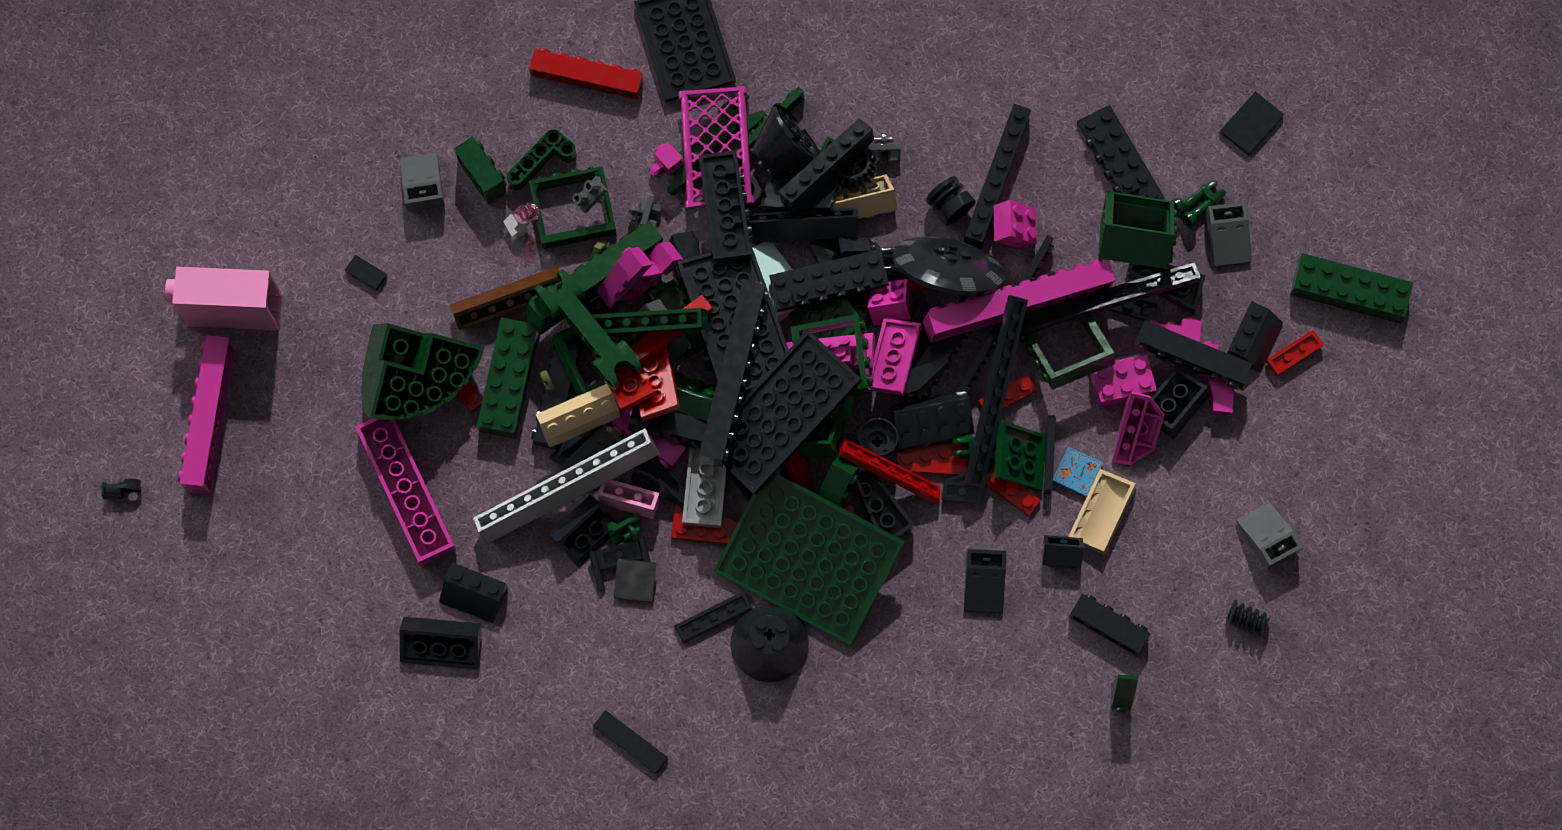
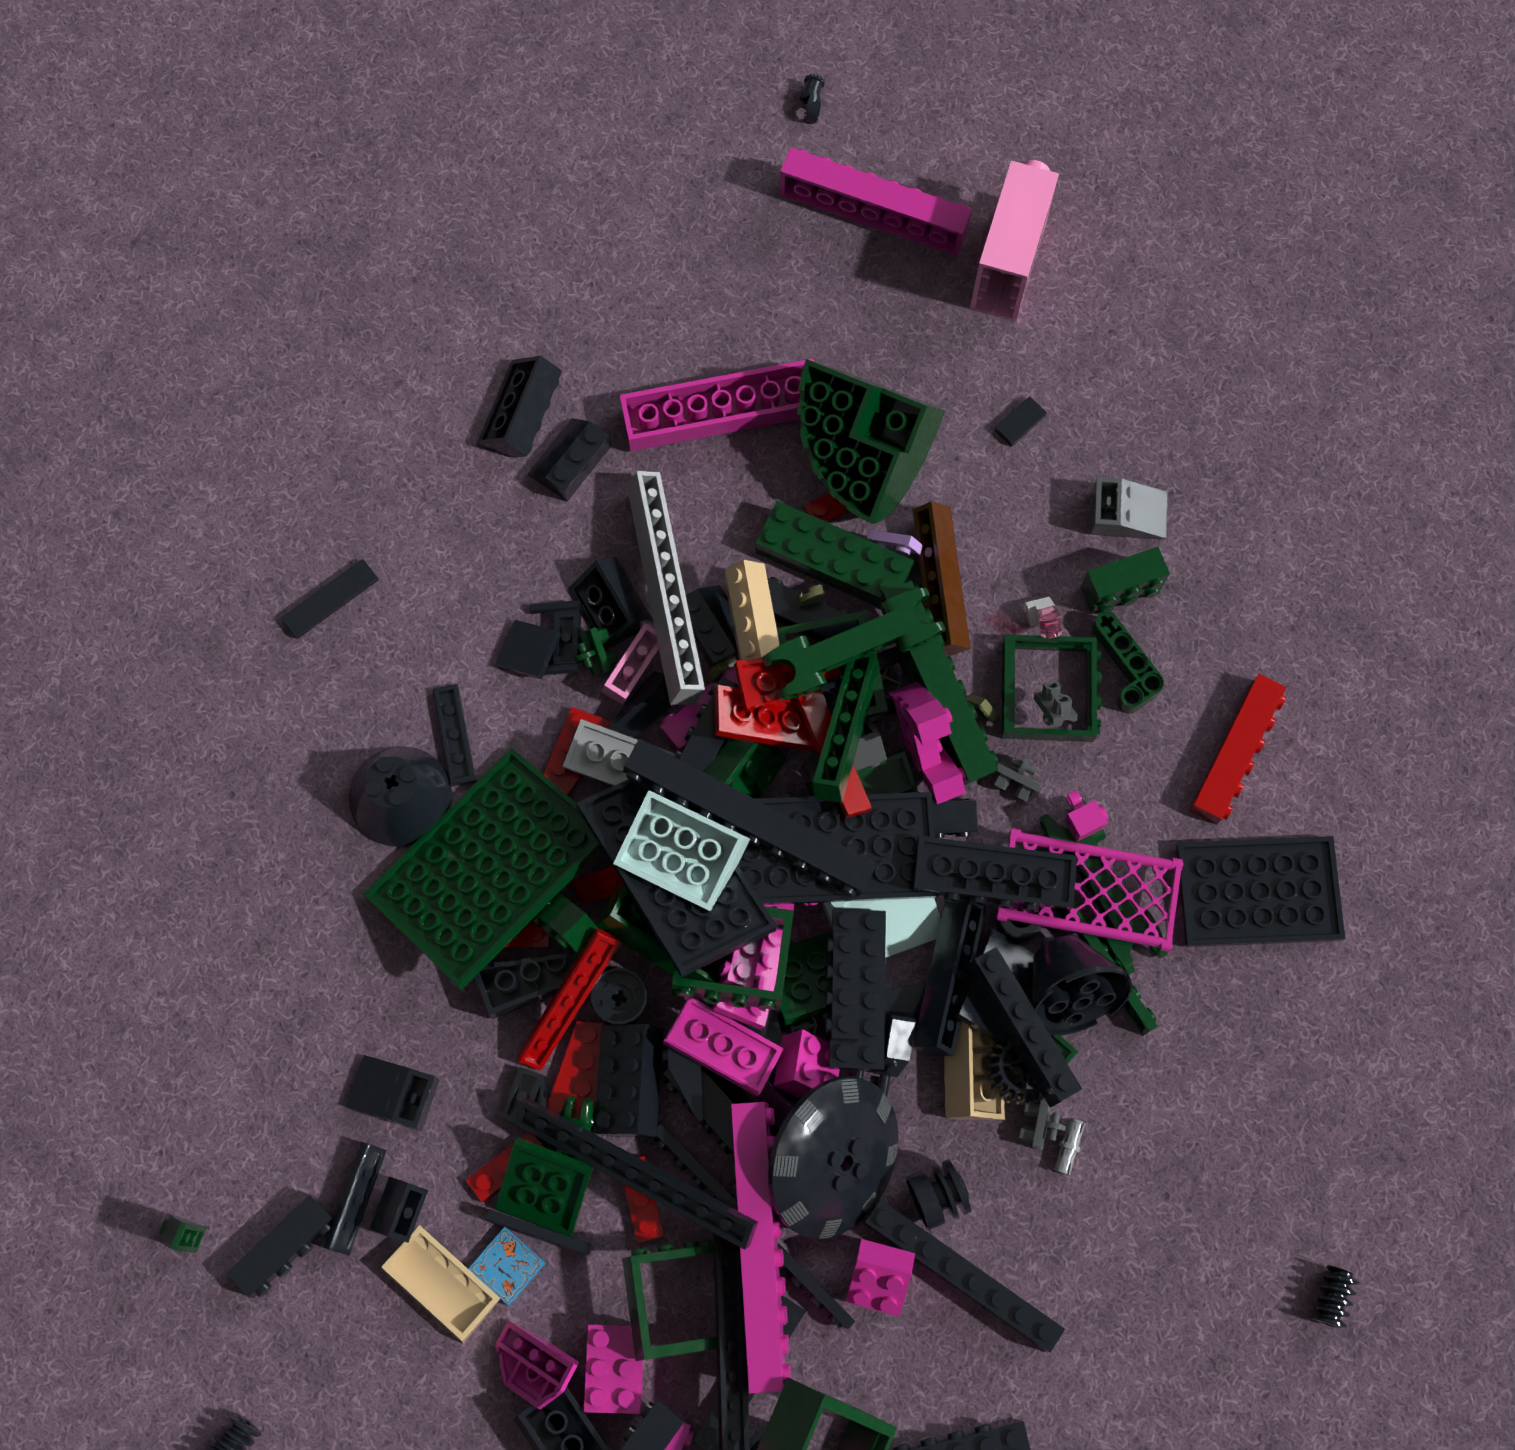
camera: 105 degrees right, 0 degrees up
(490, 328) = (899, 543): none -> lavender plate
(771, 406) = (681, 850): none -> light aqua slope
(893, 128) = (1069, 1146): none -> light grey pin
(1062, 584) = (355, 1198): none -> black tile

